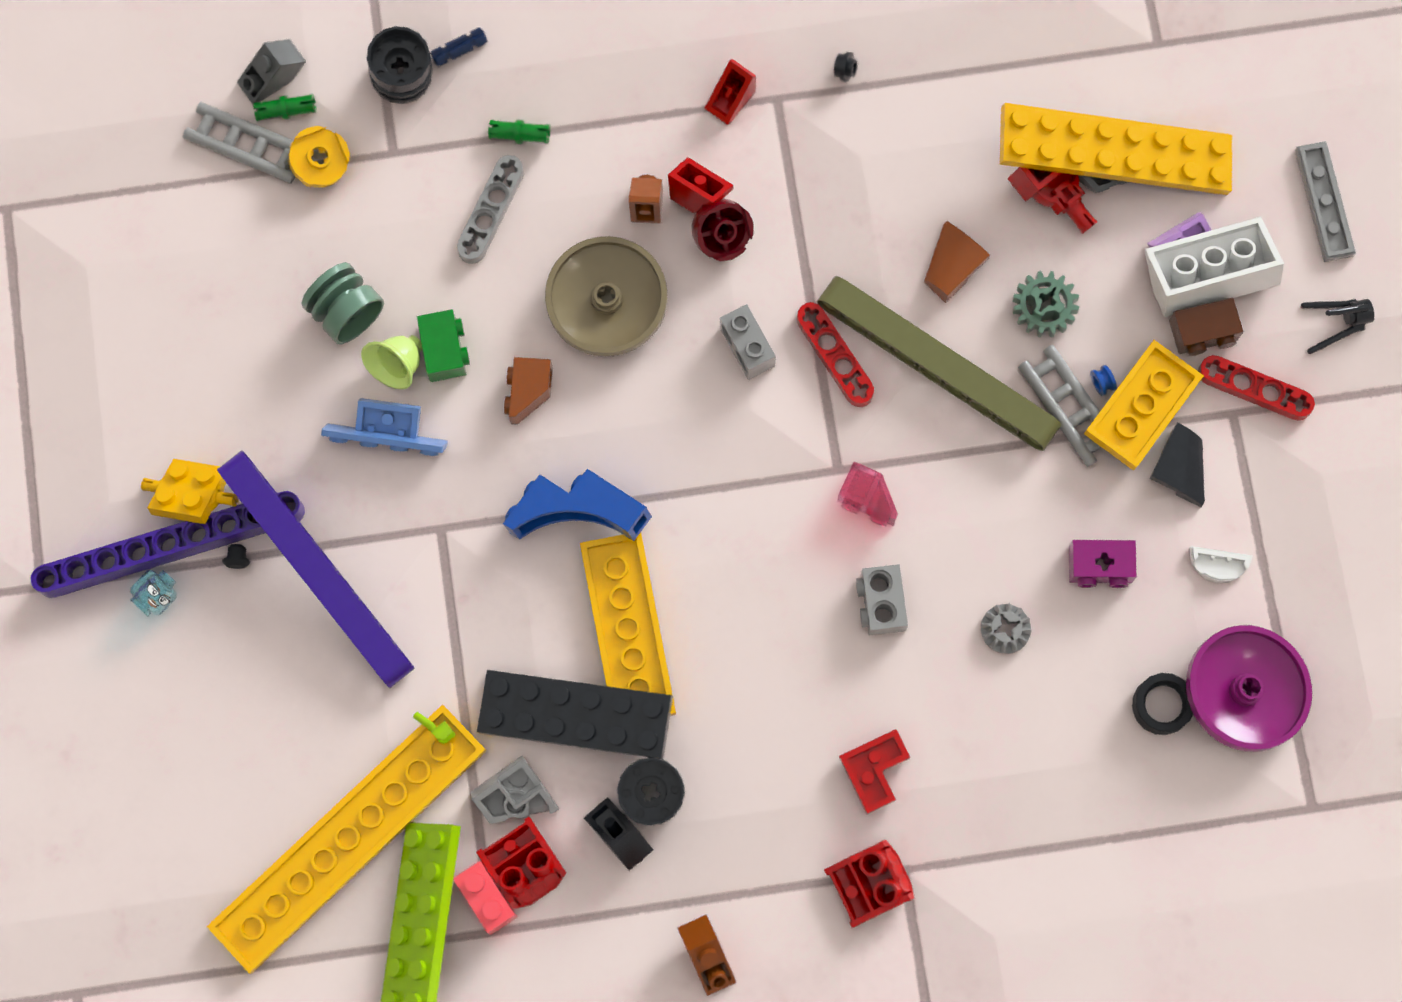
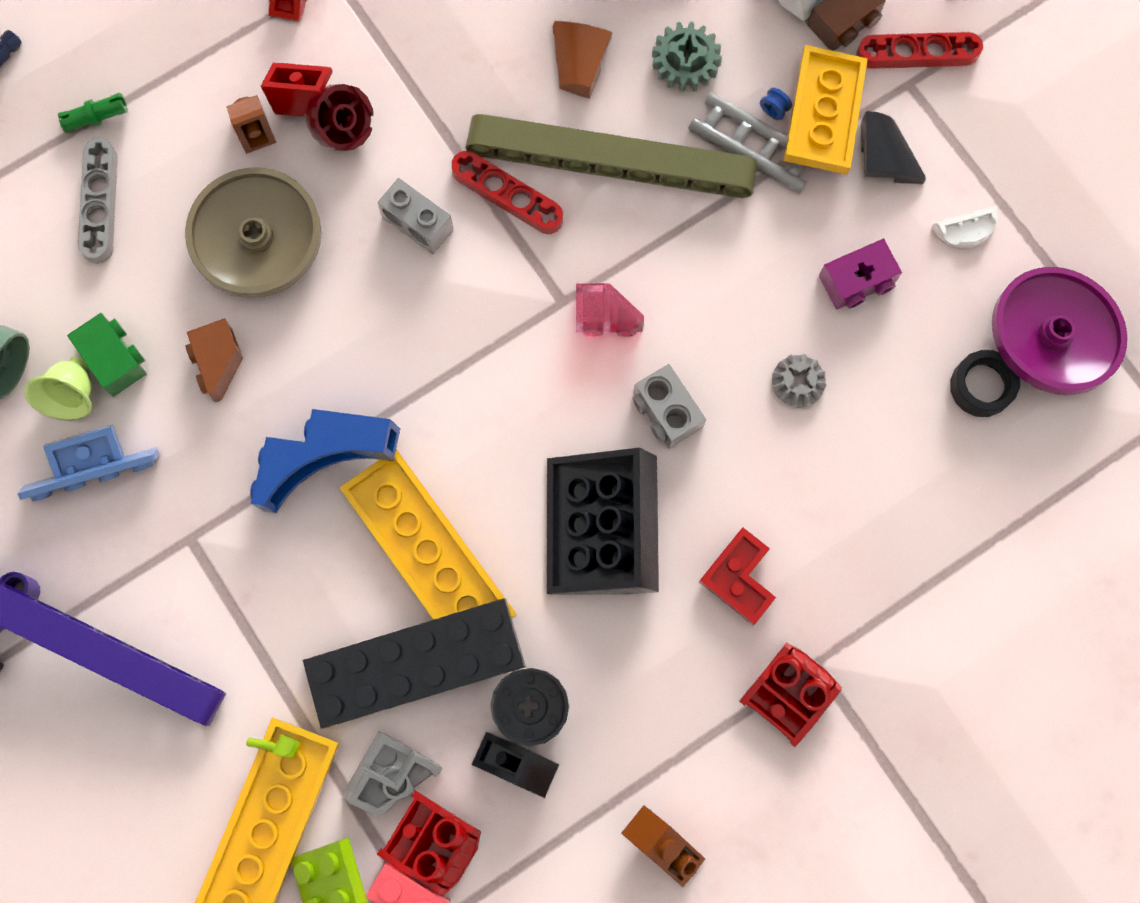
camera: 30 degrees left, 0 degrees up
(782, 672) = (602, 523): none -> black slope

